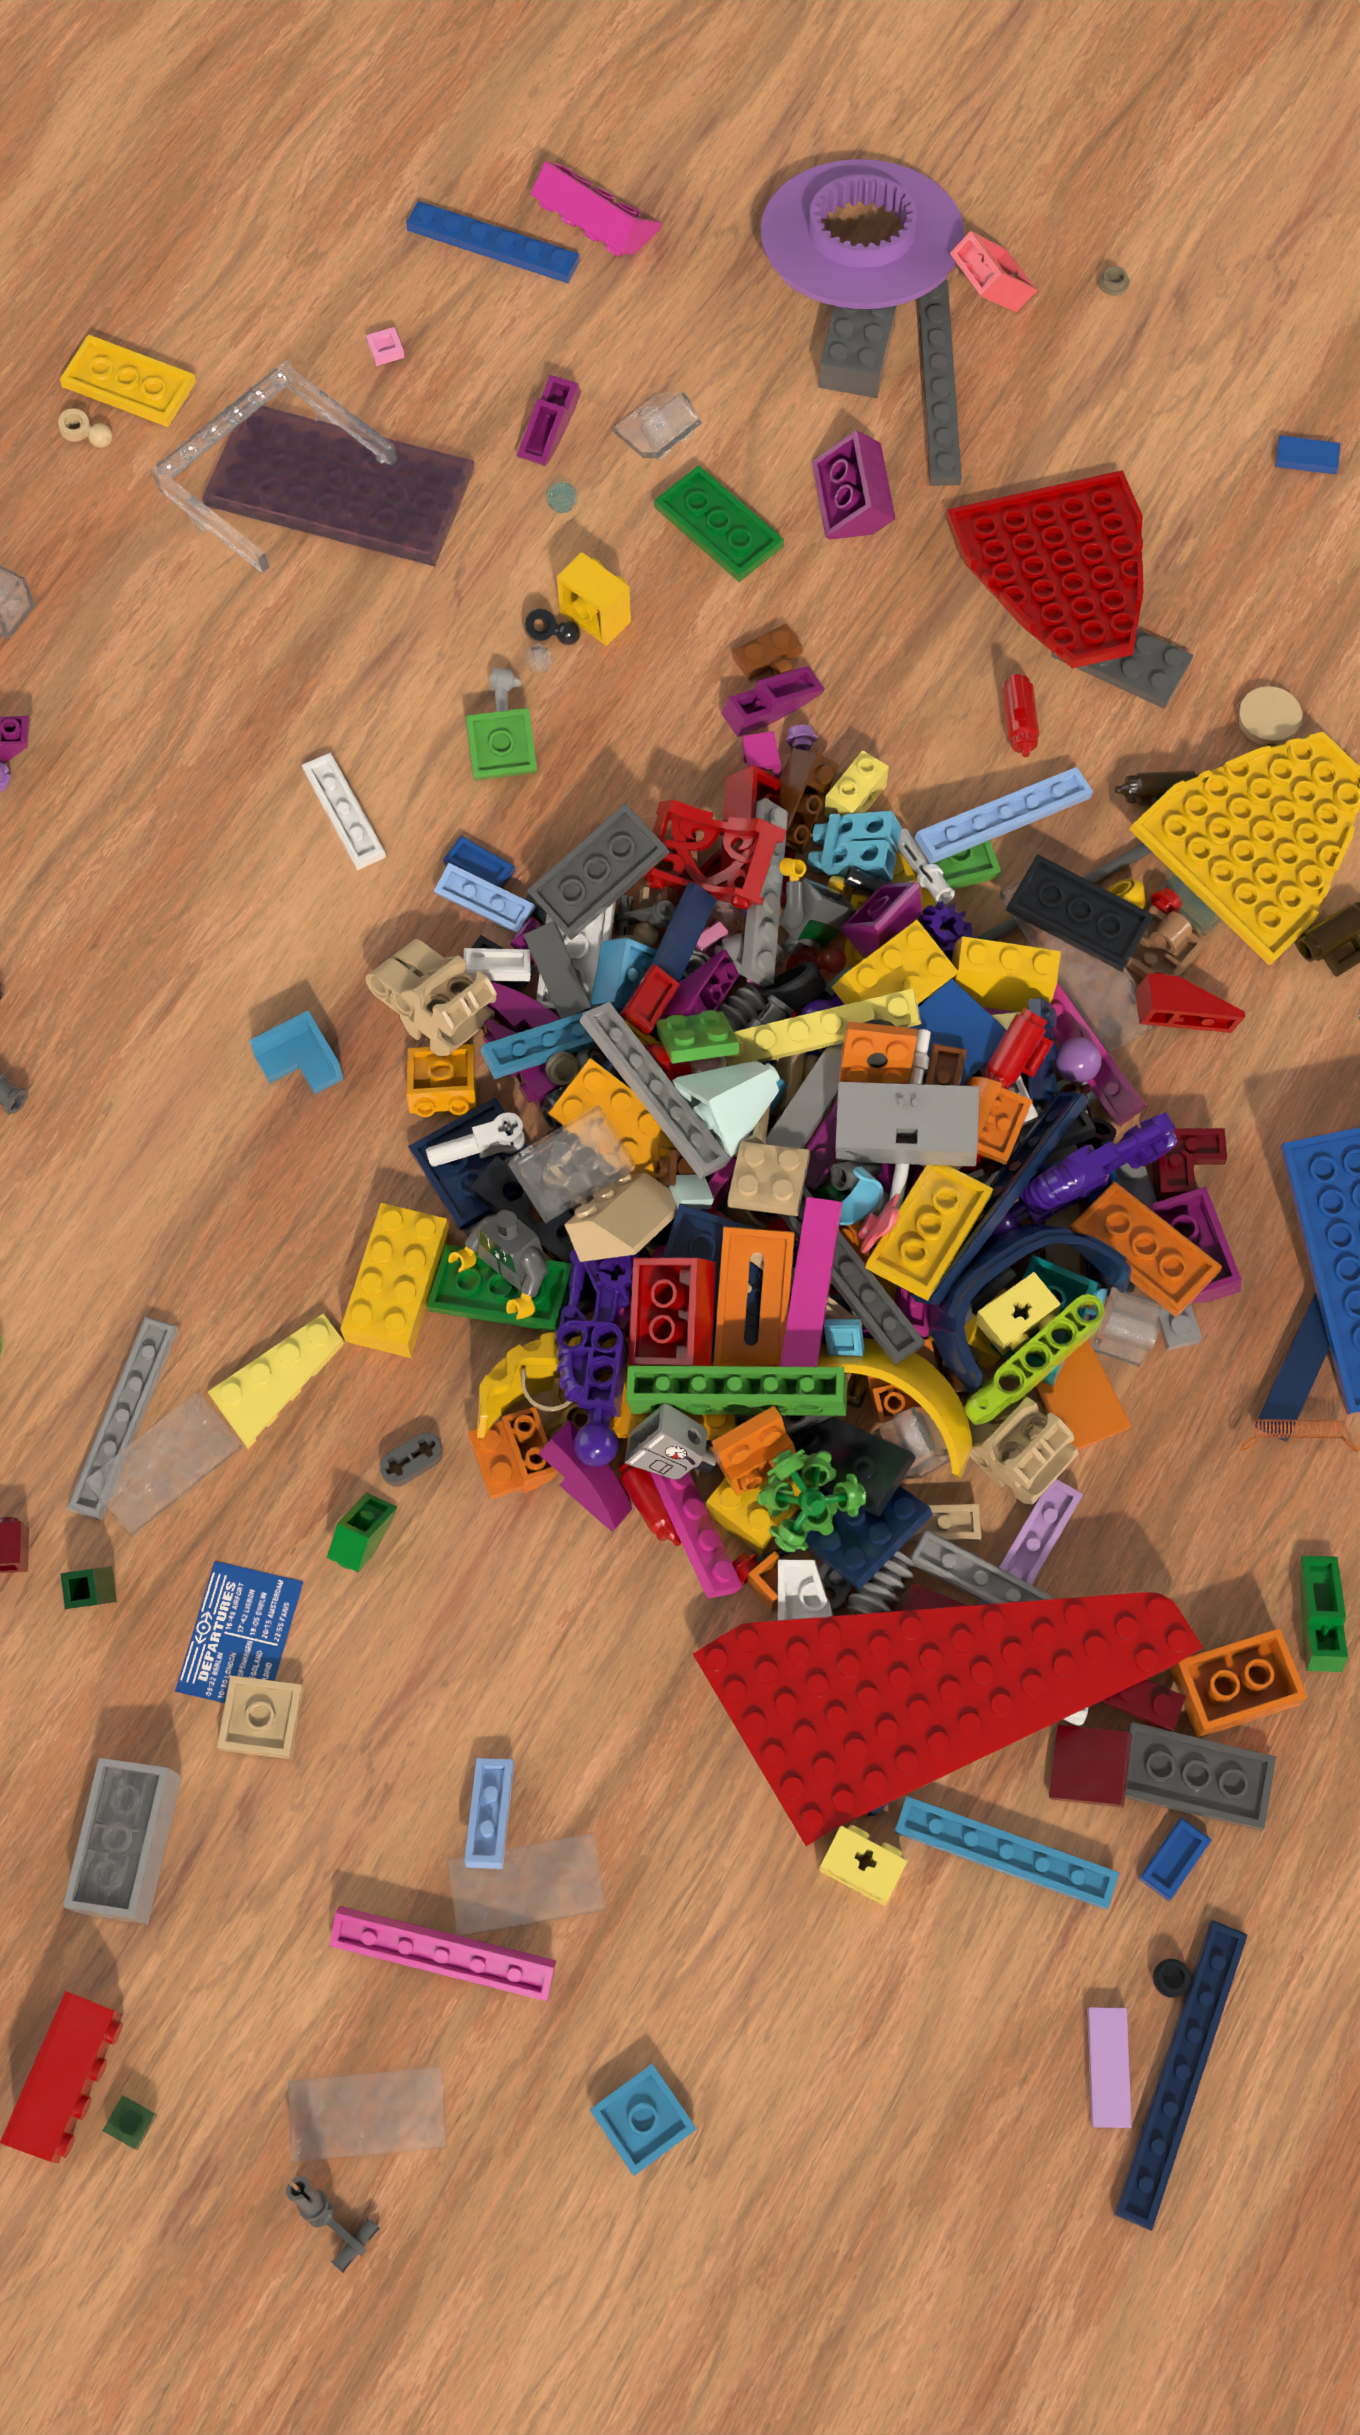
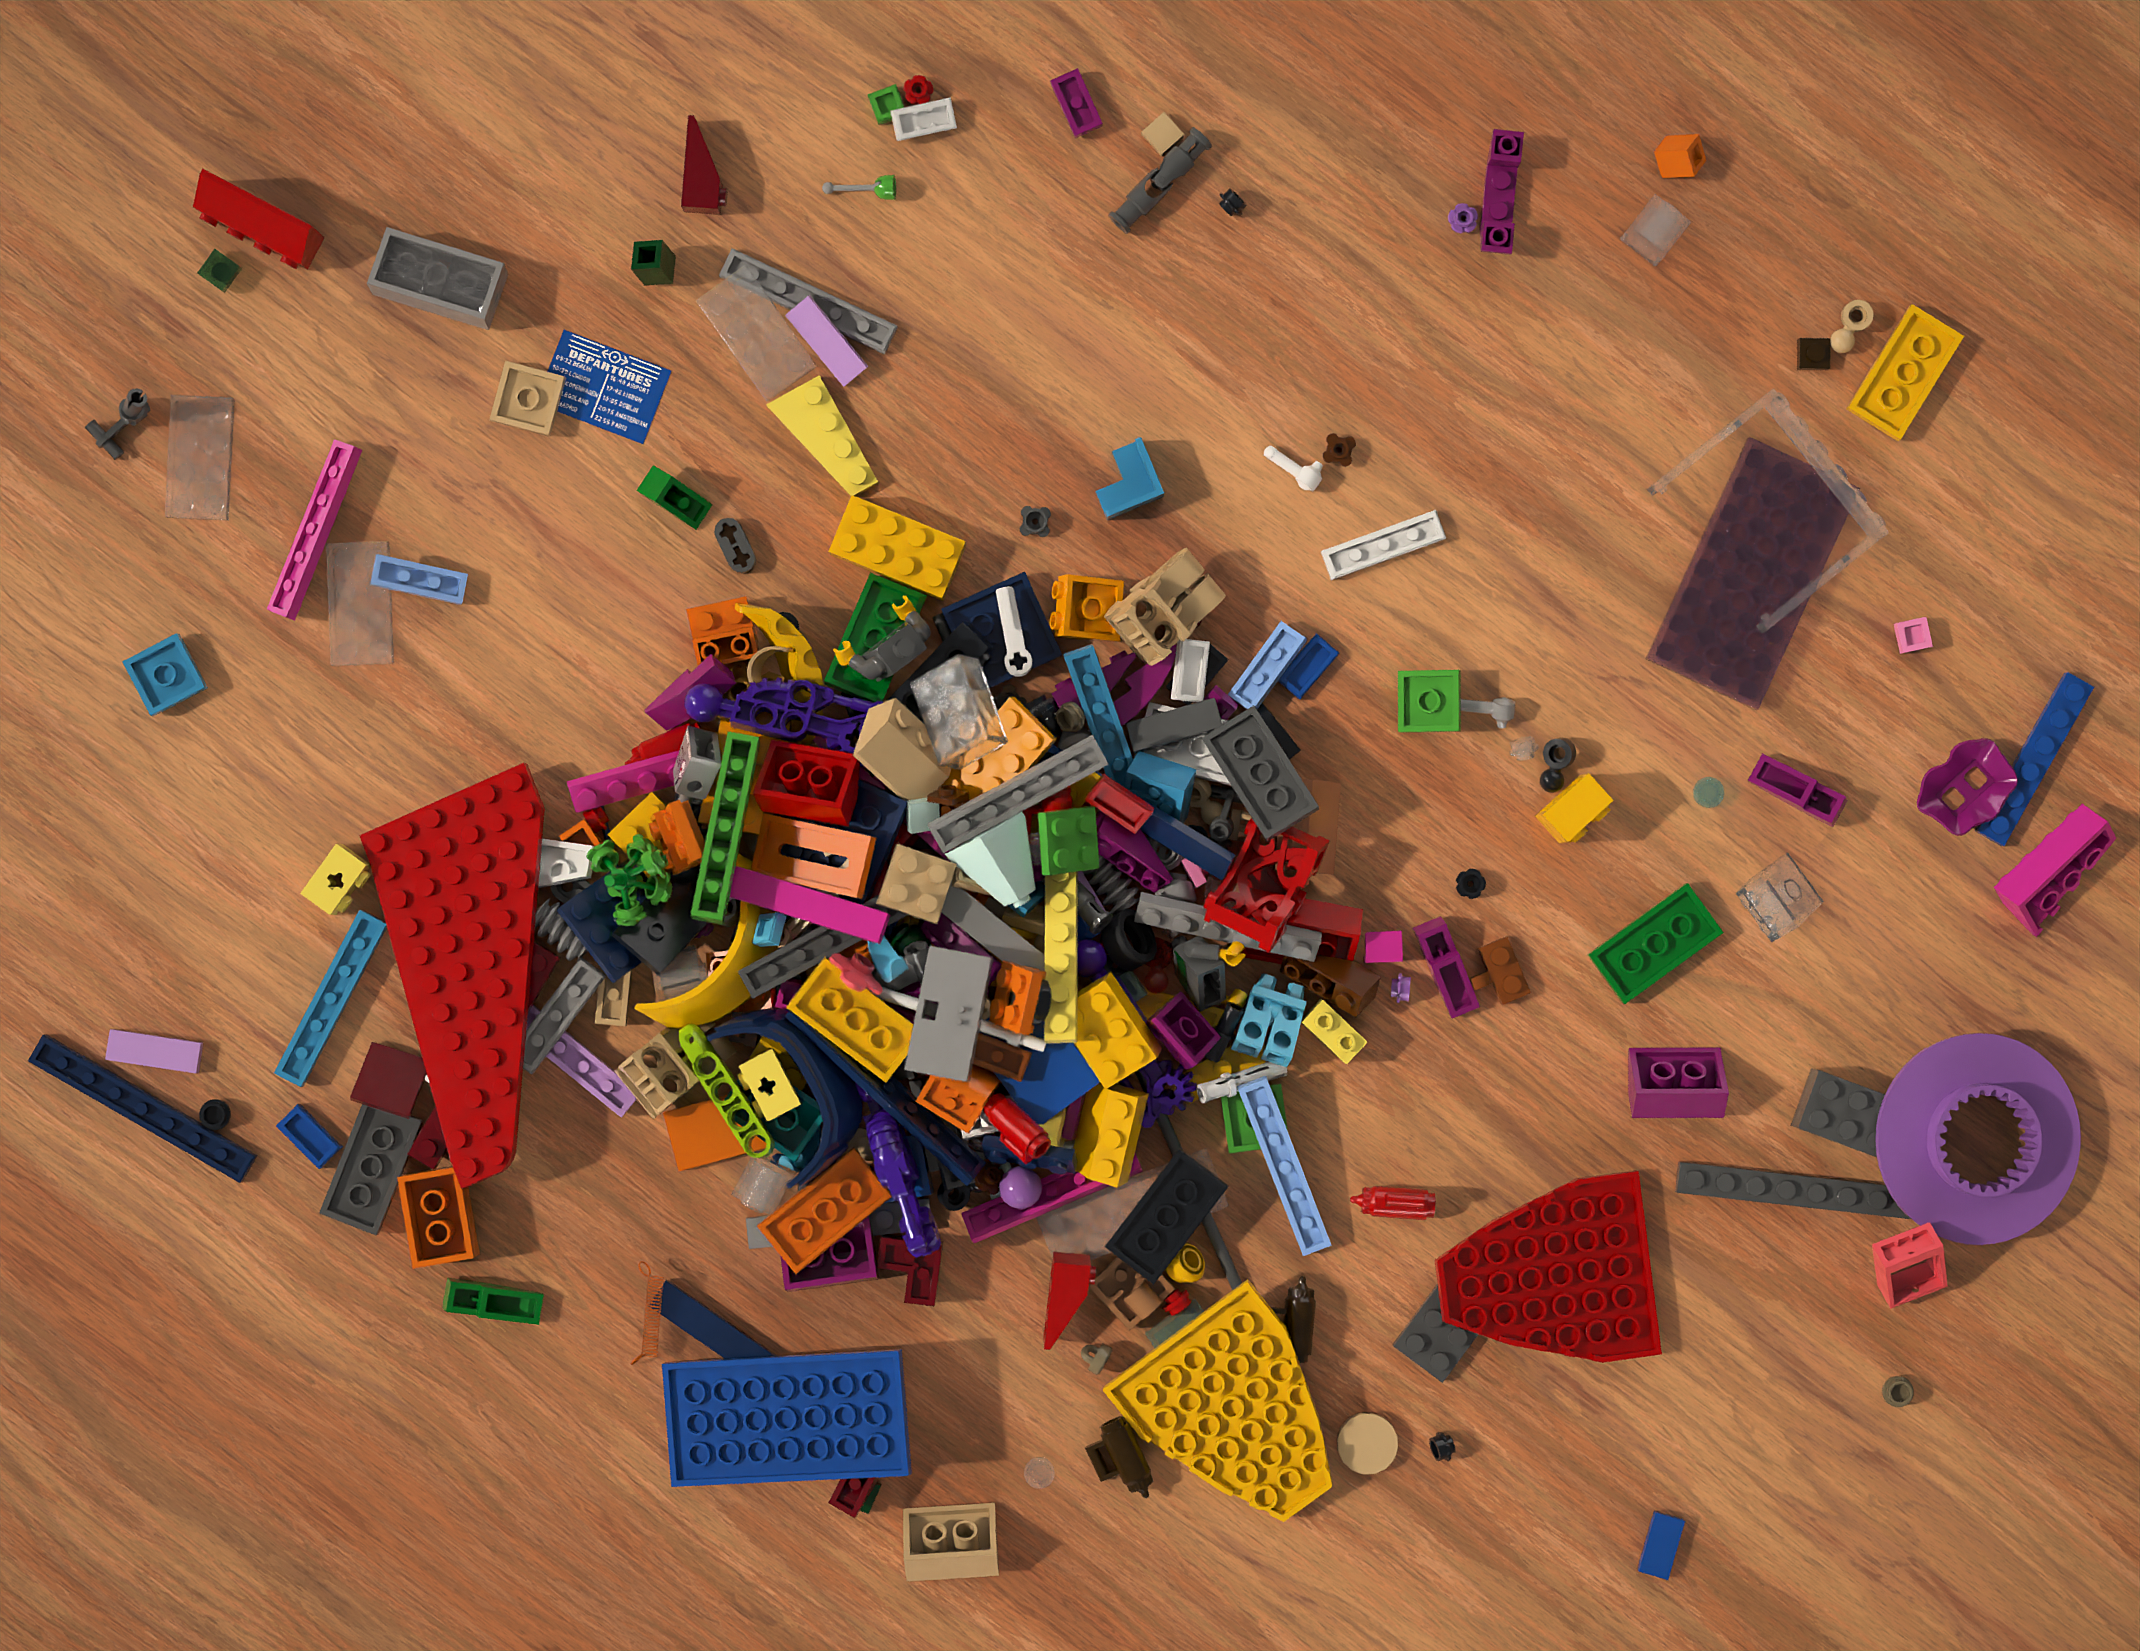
camera: 90 degrees right, 20 degrees up
(115, 459) = (1813, 354): none -> dark brown plate
(167, 1387) = (826, 340): none -> lavender tile
(248, 869) = (1332, 455): none -> reddish brown plate
(278, 887) = (1306, 476): none -> white piece
(349, 1138) = (1041, 515): none -> dark grey plate
(534, 269) = (1979, 804): none -> magenta piece
(683, 682) = (1478, 883): none -> black plate
(1241, 970) = (1101, 1357): none -> dark tan tile
(1258, 648) = (1442, 1446): none -> black plate

